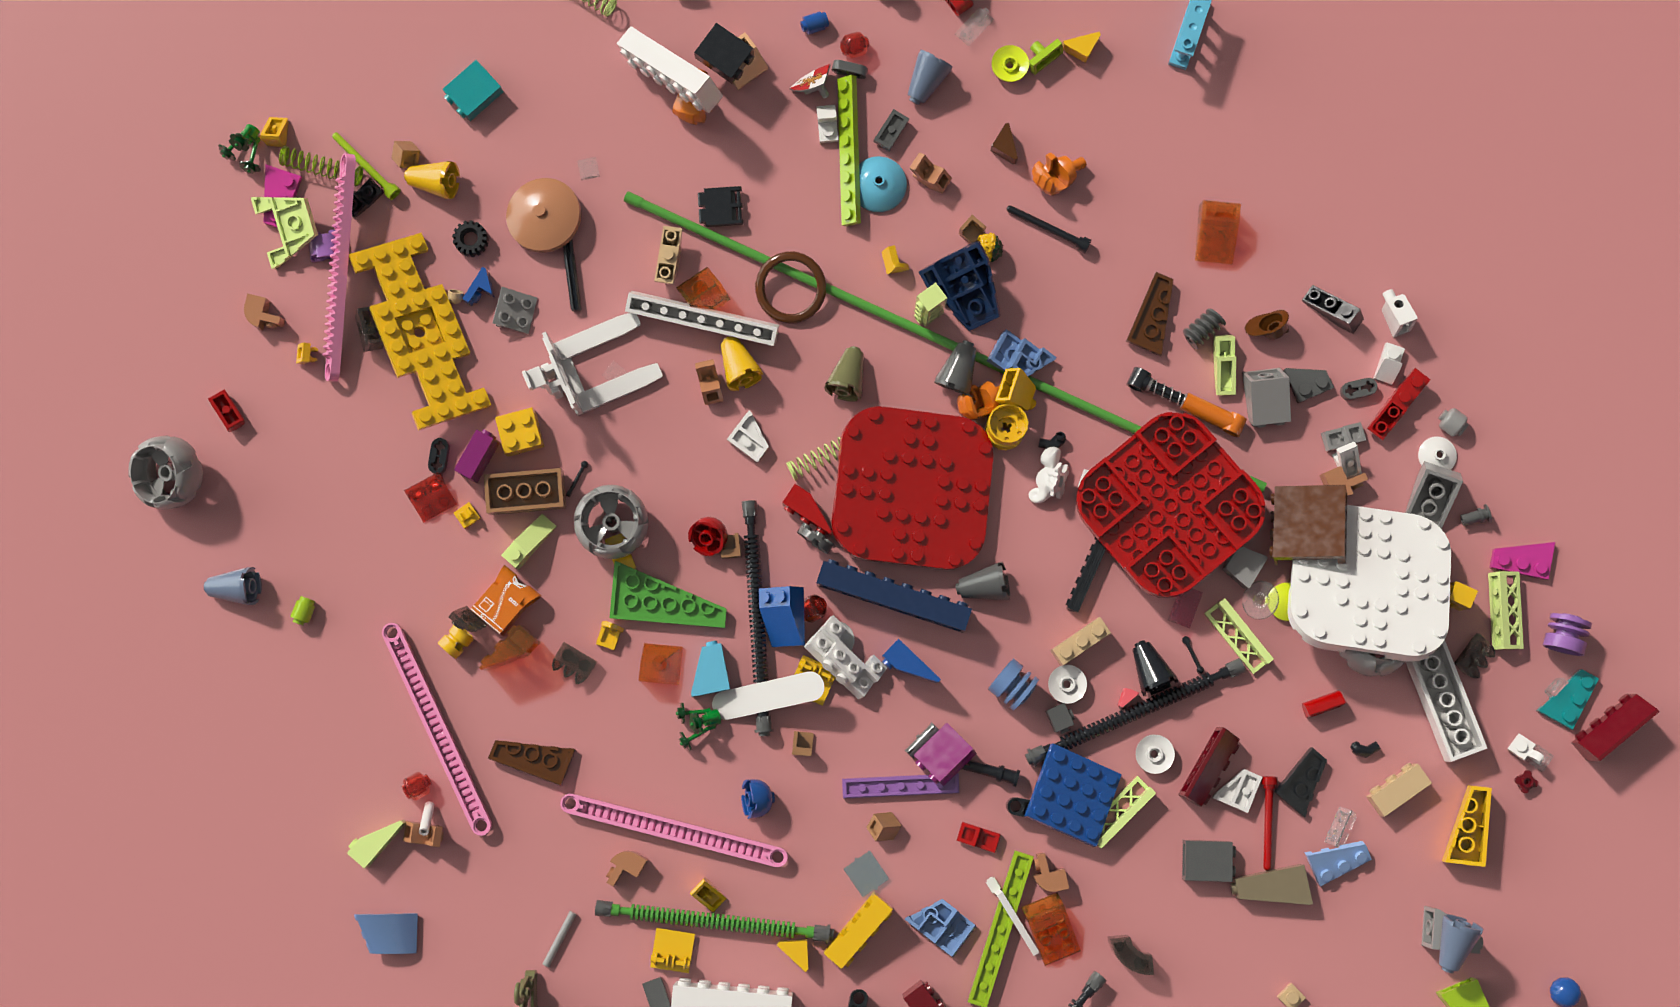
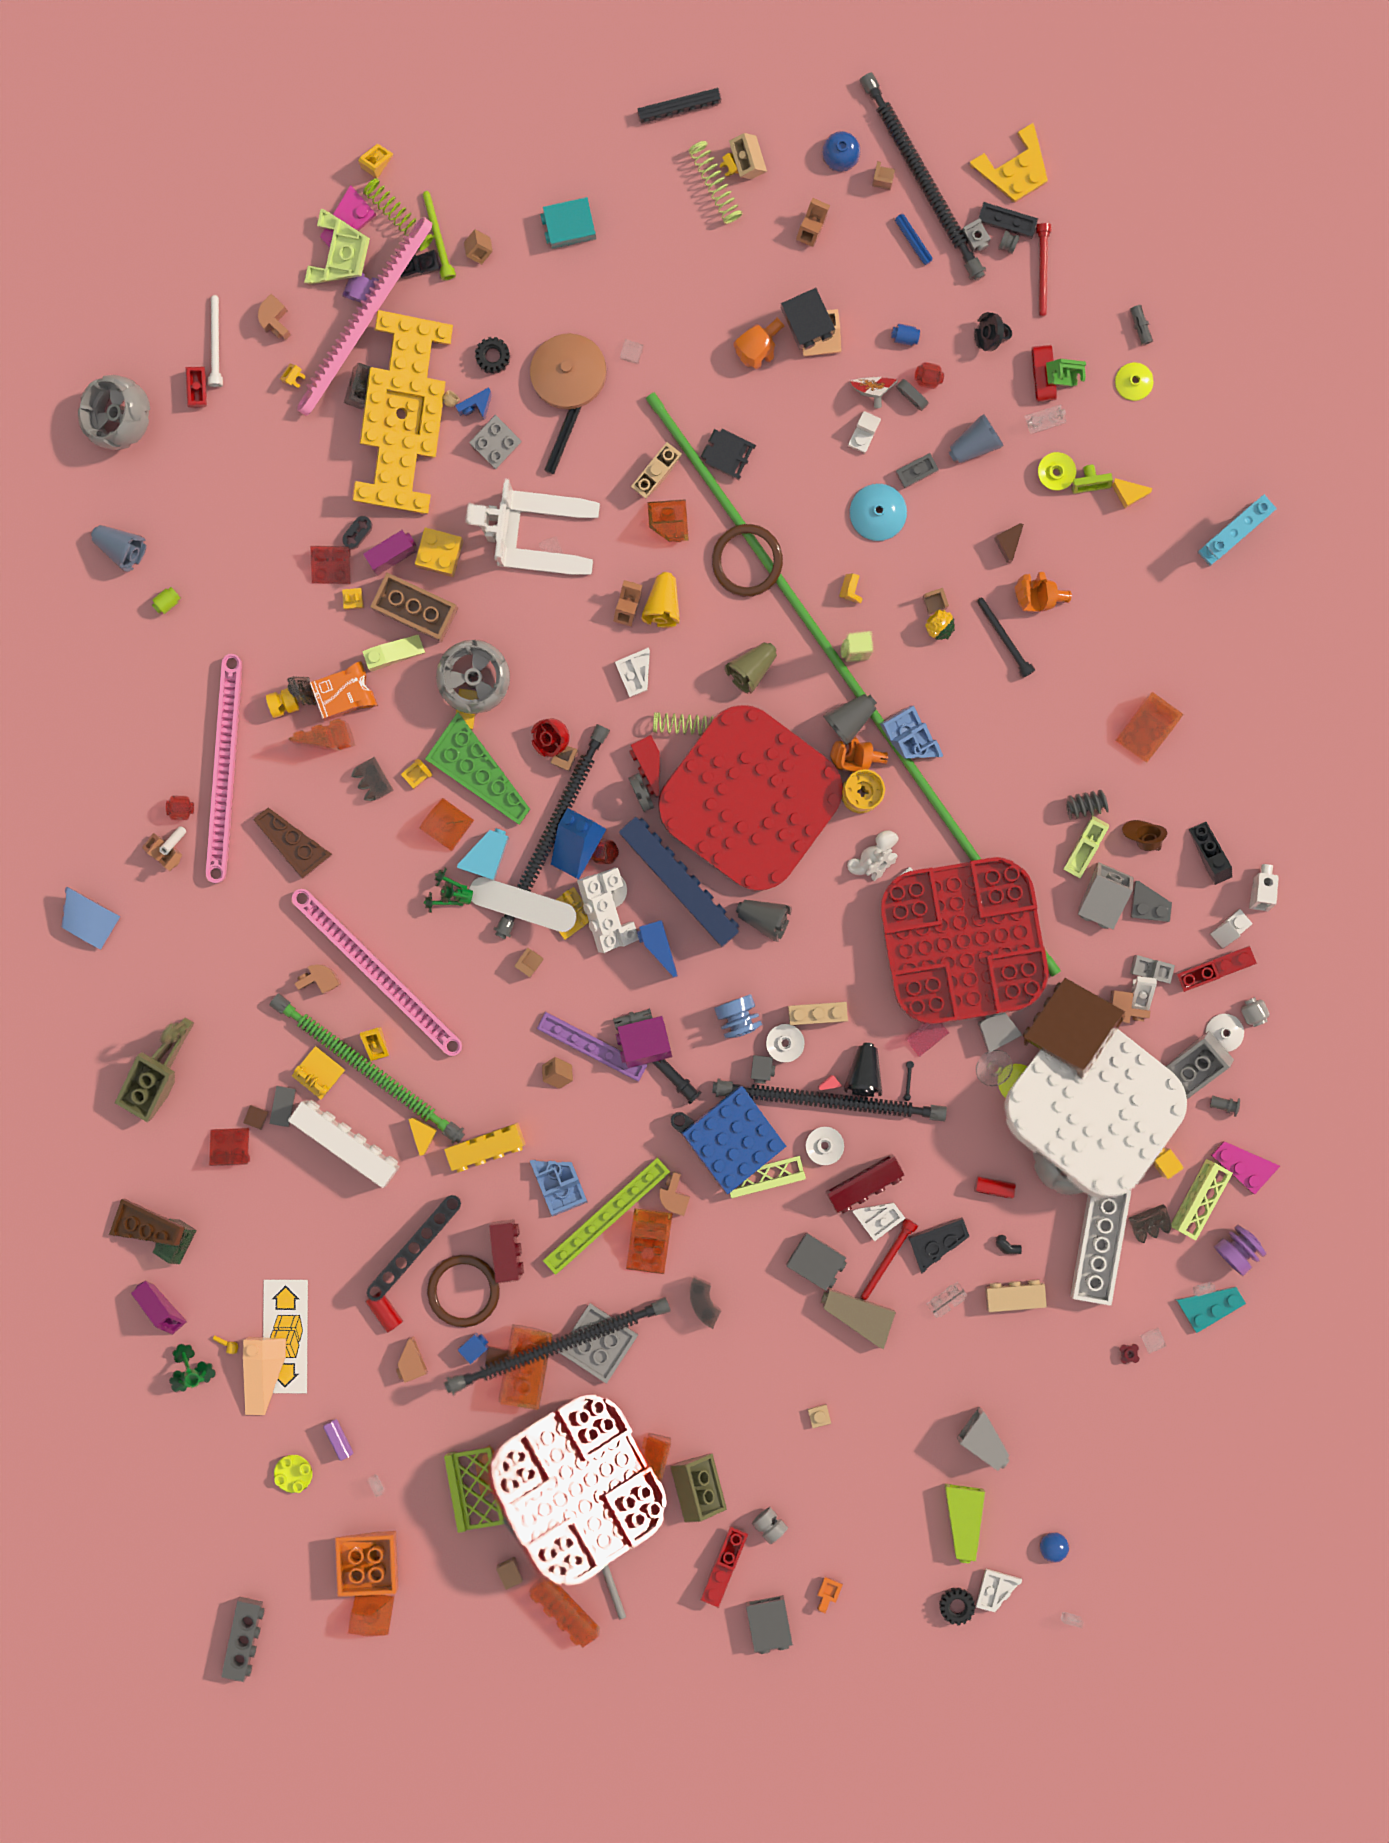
camera: 30 degrees right, 5 degrees up
(239, 141) = (339, 154): plant -> none
(239, 394) = (215, 378): none -> white piece
(369, 847) = (113, 836): yellowish green slope -> none
(434, 178) = (491, 284): yellow cone -> none
(559, 939) = (228, 1007): light grey bar -> none
(584, 464) = (479, 612): black hinge -> none
(669, 70) = (750, 306): white brick -> none
(702, 318) = (655, 545): white brick -> none
(757, 798) = (463, 986): blue cylinder -> none
(849, 150) = (869, 467): lime plate -> none
(866, 873) = (519, 1103): clear light blue piece -> none
(930, 174) = (927, 529): nougat brick -> none
(967, 283) = (900, 646): dark blue wedge -> none
(978, 837) = (633, 1128): red slope -> none
(995, 888) = (622, 1179): white piece -> none
(1016, 389) = (890, 764): yellow torso -> none
(1057, 441) = (899, 829): black arm -> none
(1086, 577) = (856, 961): black piece -> none
(1151, 320) = (1047, 769): reddish brown wing -> none
(1229, 422) = (1036, 864): piece -> none
(1244, 631) = (964, 1087): yellowish green fence -> none
(1335, 862) = (920, 1325): light blue wing -> none
(1359, 393) = (1192, 931): dark grey beam -> none
(1457, 941) = (983, 1449): sand blue cone -> none
(1470, 832) = (1054, 1367): yellow wedge -> none
(1524, 748) = (1144, 1325): white plate -> none
(1614, 727) = (1232, 1351): dark red slope -> none

